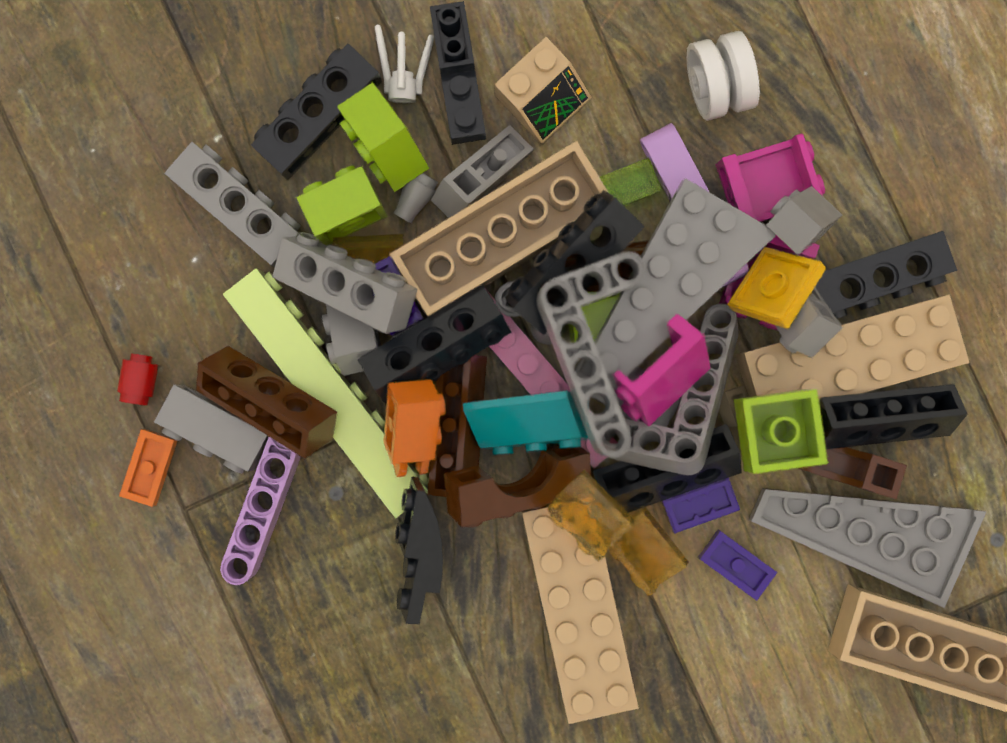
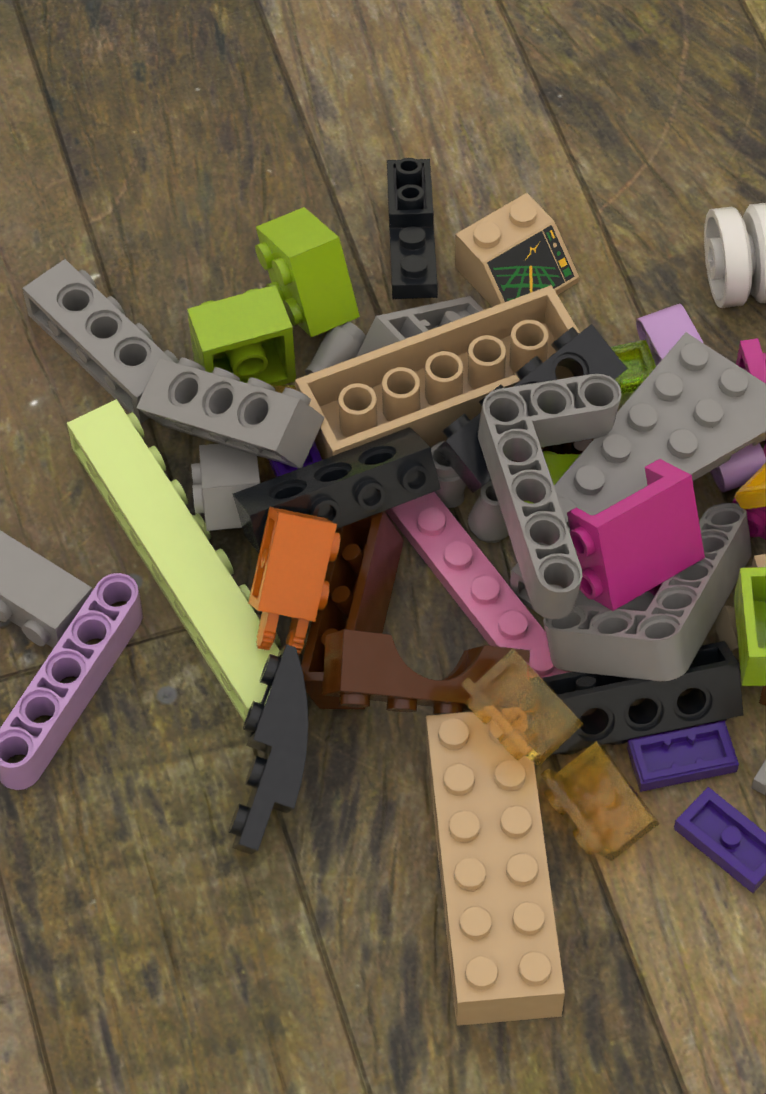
camera: 10 degrees right, 30 degrees down
(266, 401) = (100, 540): reddish brown brick -> none
(313, 131) = (215, 258): black brick -> none
(402, 85) = (351, 241): white plant -> none
(526, 422) = (450, 596): teal slope -> none

